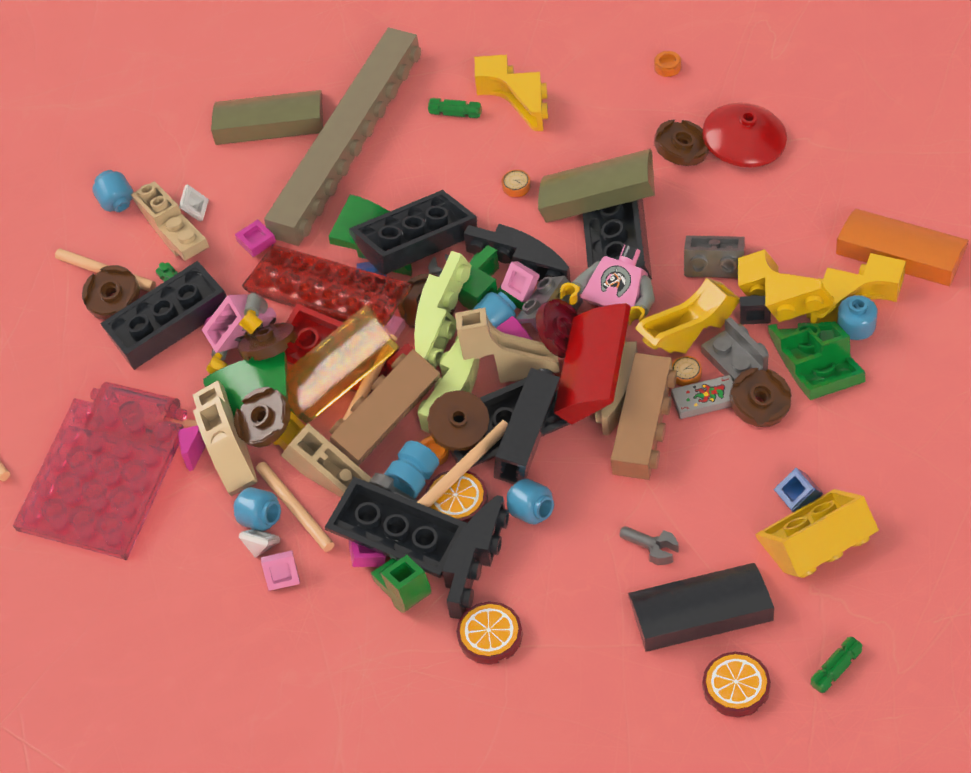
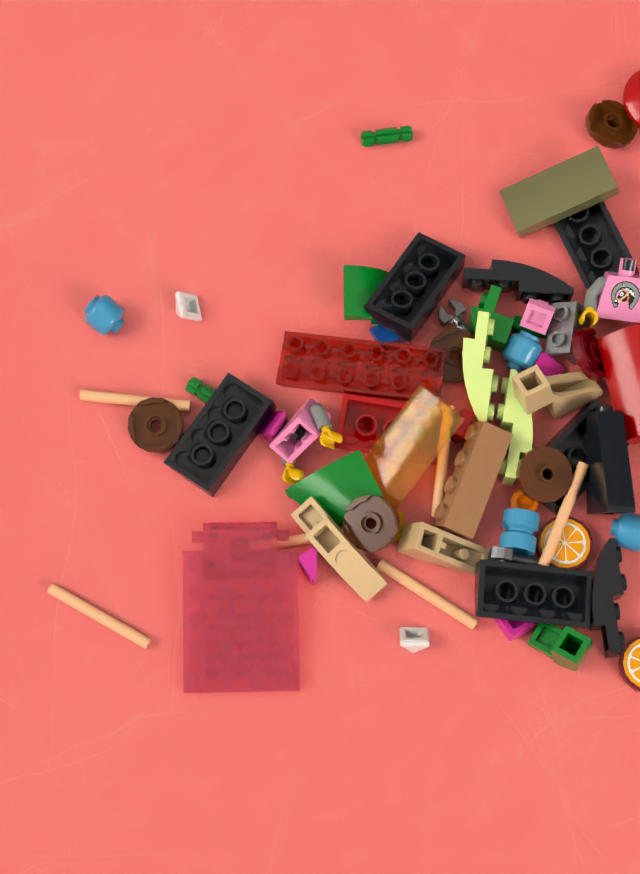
camera: 30 degrees left, 20 degrees up
(169, 222) = (177, 335): tan slope -> none
(255, 238) = (265, 329): dark pink plate -> none
(257, 509) = (399, 610): dark azure head -> none
(267, 117) = (212, 188): olive slope -> none
(267, 341) = (345, 452): reddish brown plate -> none
(280, 570) = (447, 663): bright pink tile -> none
(342, 137) = (298, 195): dark tan brick -> none
(516, 183) = (478, 204): tile -> none
(521, 90) = (446, 104): yellow arch -> none
(667, 63) = (560, 38): orange tile -> none

